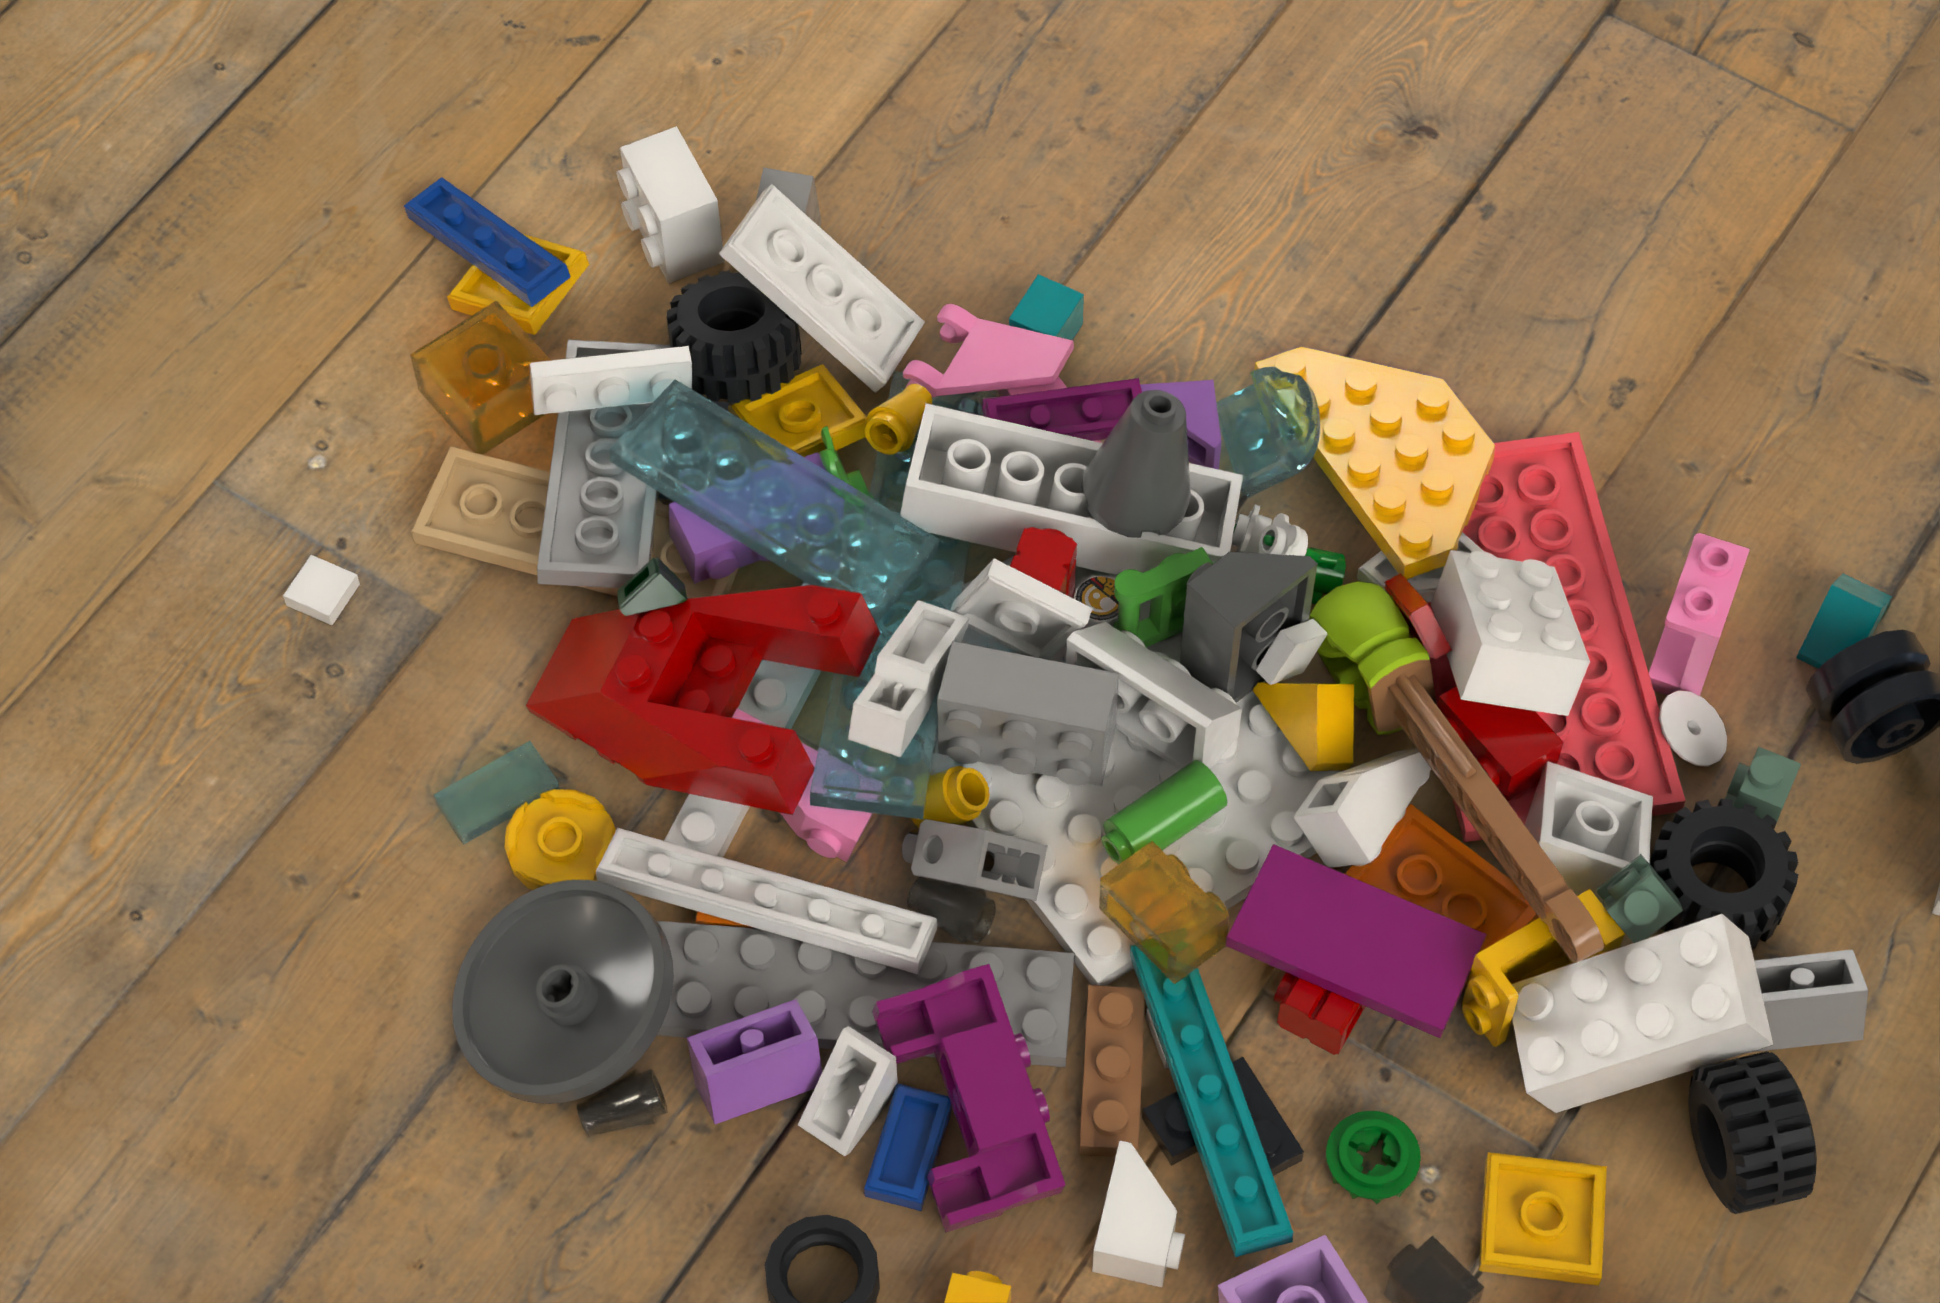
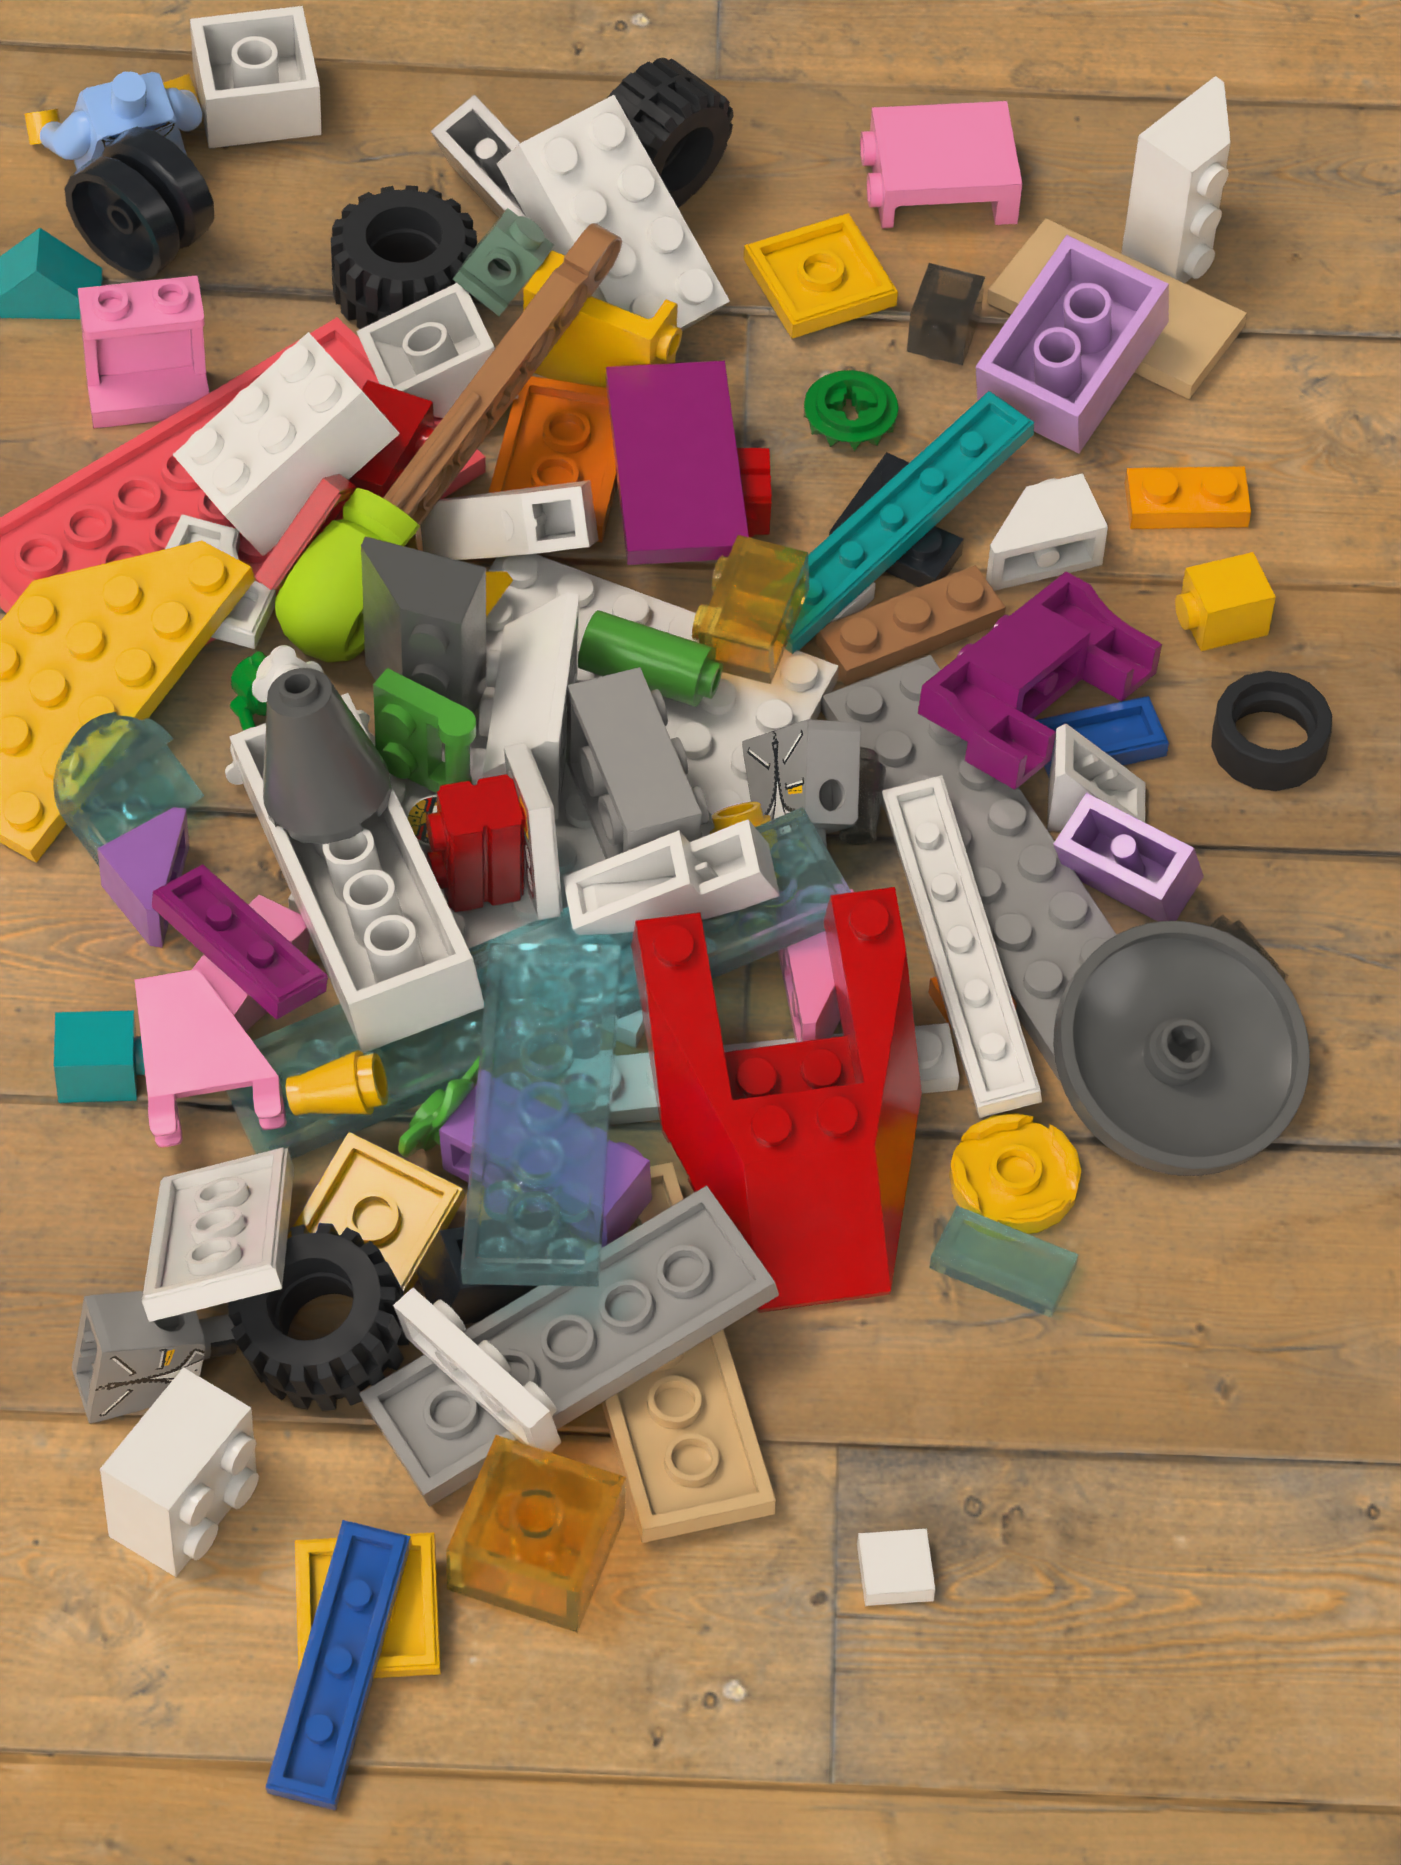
camera: 125 degrees left, 5 degrees down
(651, 589) = (732, 1160): slope -> none
(1693, 728) = (245, 348): white piece -> none
(1763, 783) = (289, 271): sand green brick -> none

